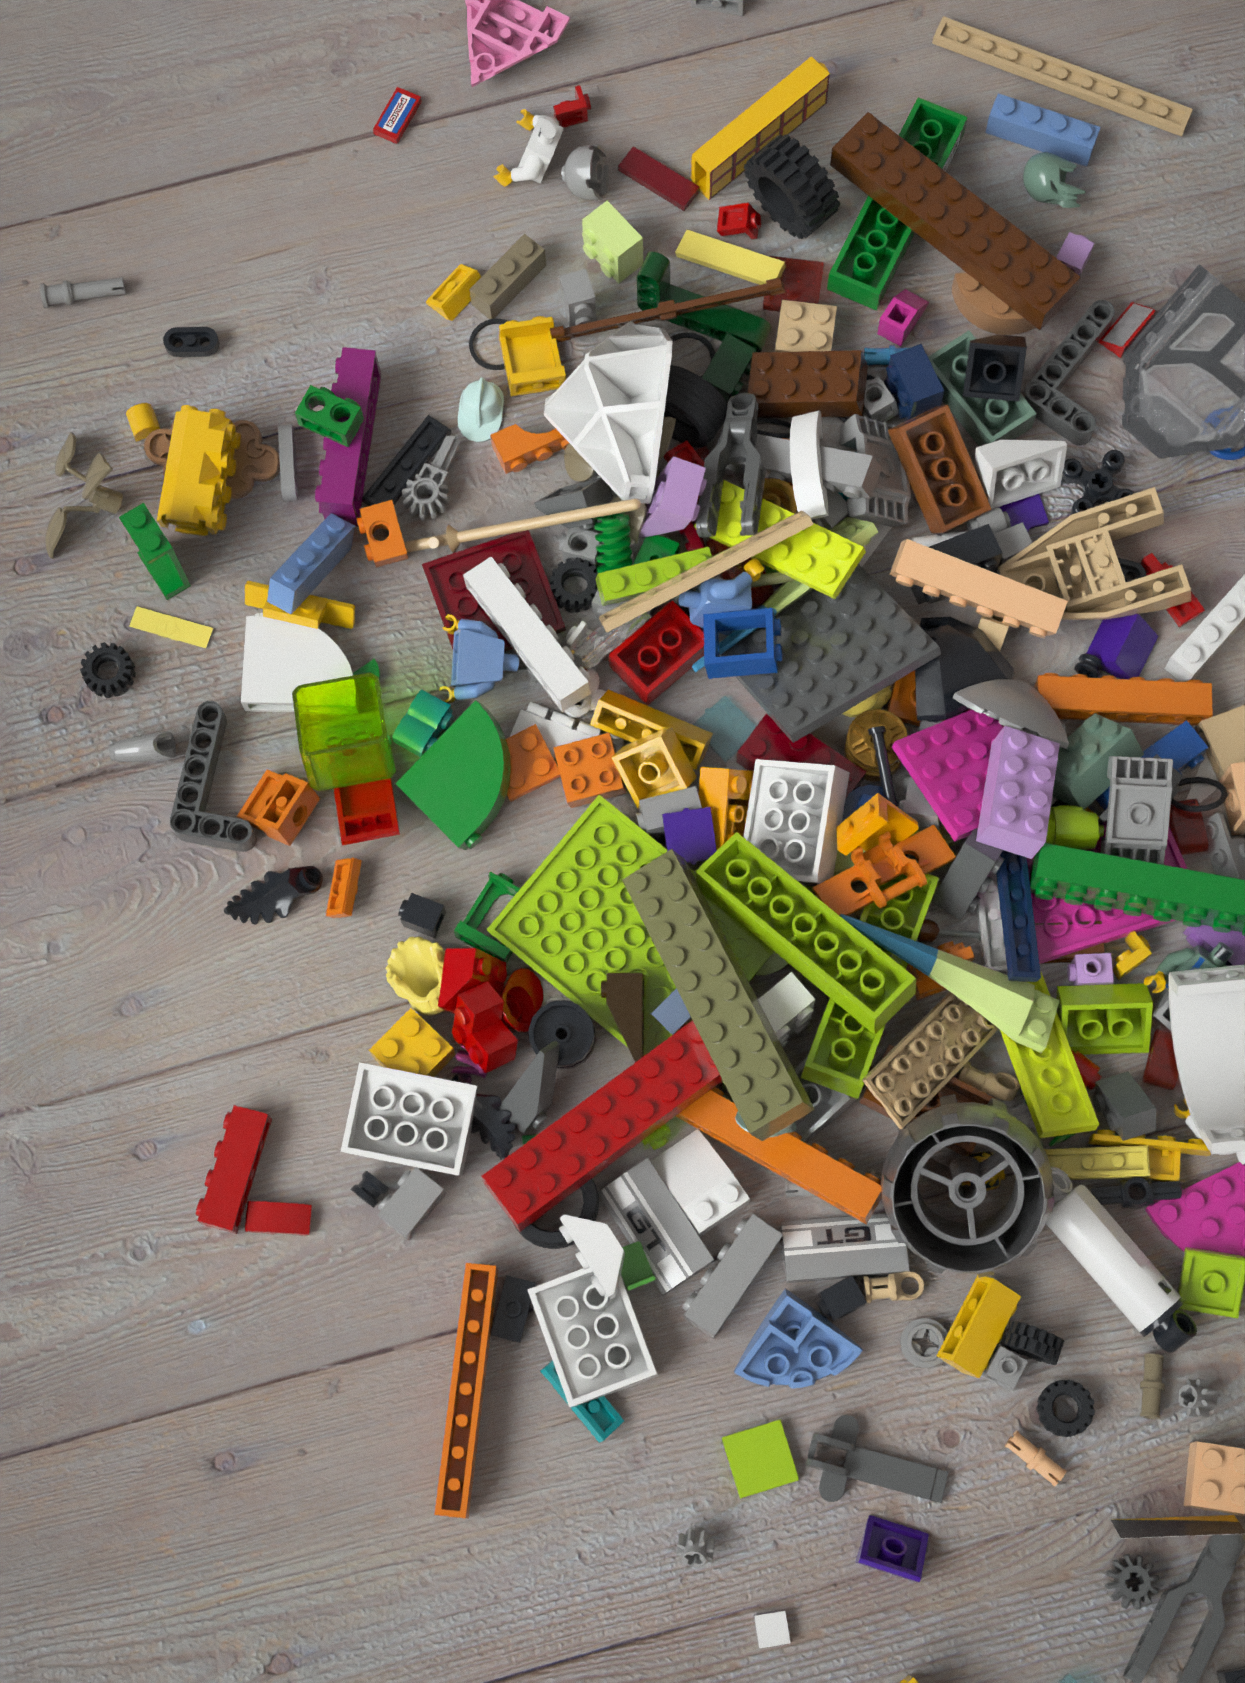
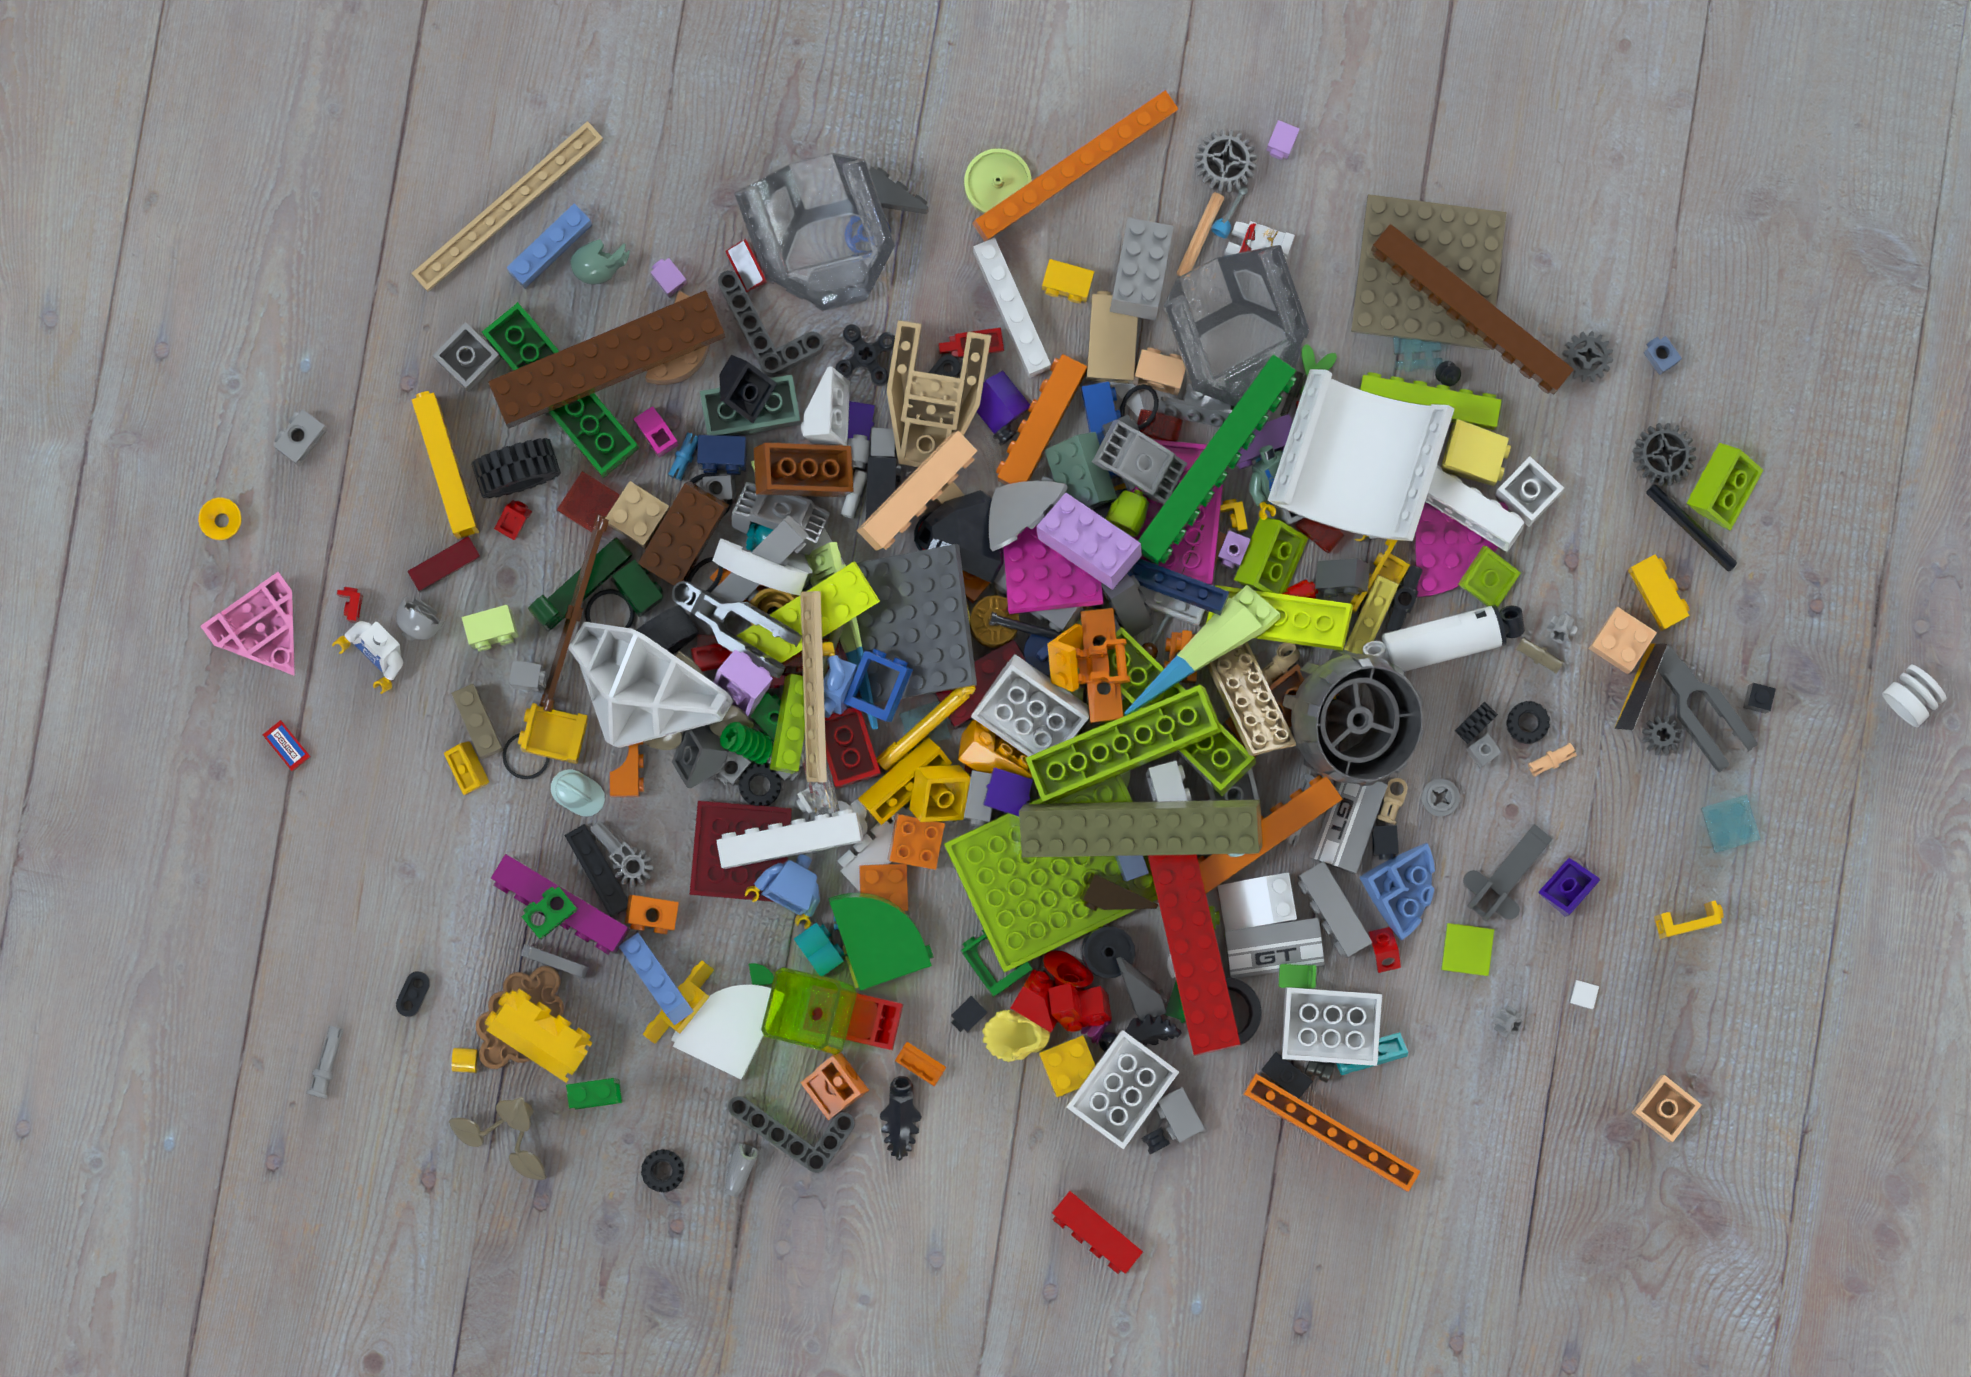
camera: 75 degrees left, 10 degrees up
(171, 627) = (647, 1108): light yellow piece -> none
(278, 1218) = (1146, 1216): red slope -> none
(454, 538) = (681, 859): tan piece -> none
(536, 1344) = (1320, 1069): none -> pearl dark grey wheel
(598, 1251) = (1280, 996): white slope -> none
(685, 710) = (900, 749): none -> yellow piece
(716, 1356) = (1385, 947): none -> red bracket
(729, 258) = (544, 541): light yellow tile -> none
(886, 96) = (466, 357): none -> light grey brick
(979, 1326) = (1448, 755): yellow brick -> none

